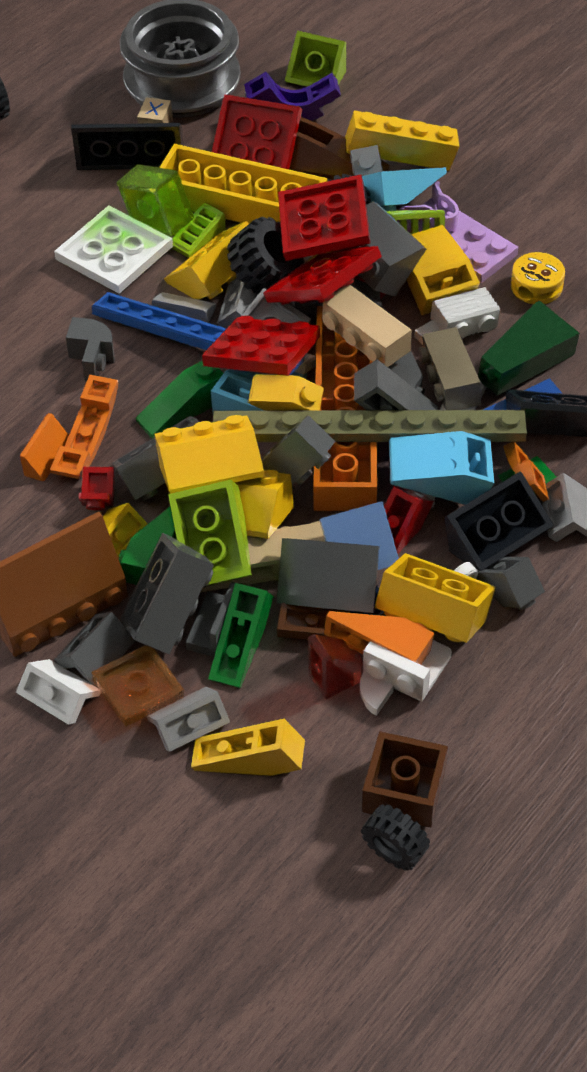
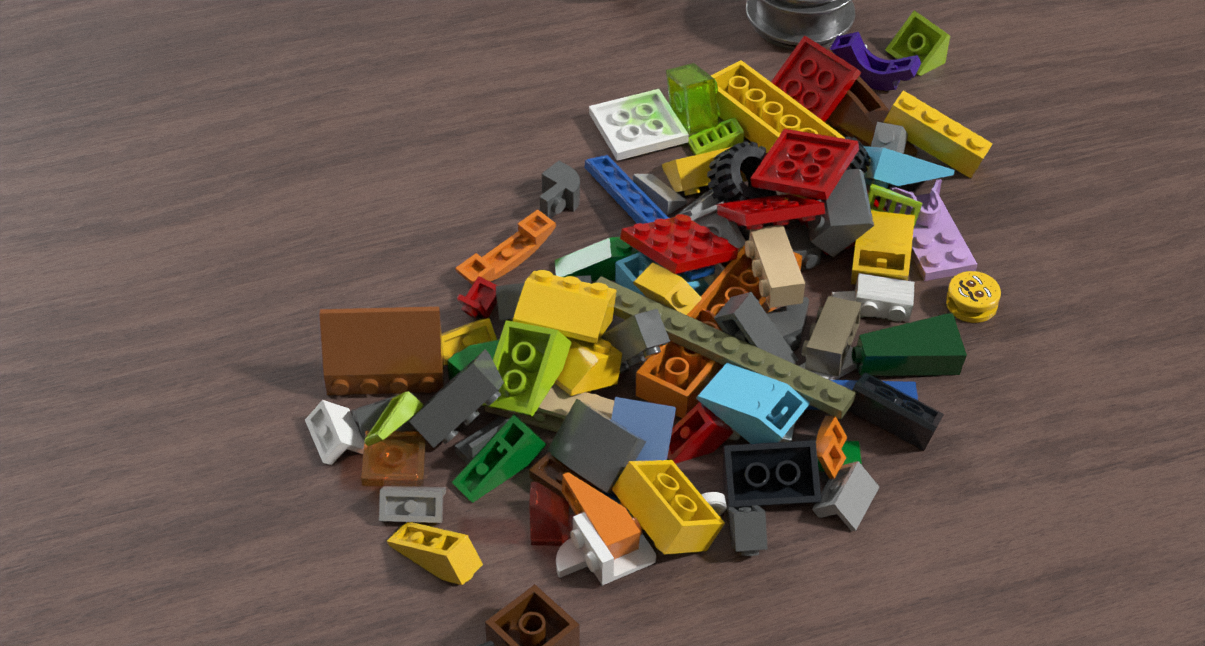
camera: 30 degrees right, 5 degrees down
(42, 448) = (463, 247): orange slope -> none
(116, 645) = (395, 415): none -> lime slope
(123, 144) = (705, 46): black slope -> none
(155, 111) = (750, 37): tan brick -> none

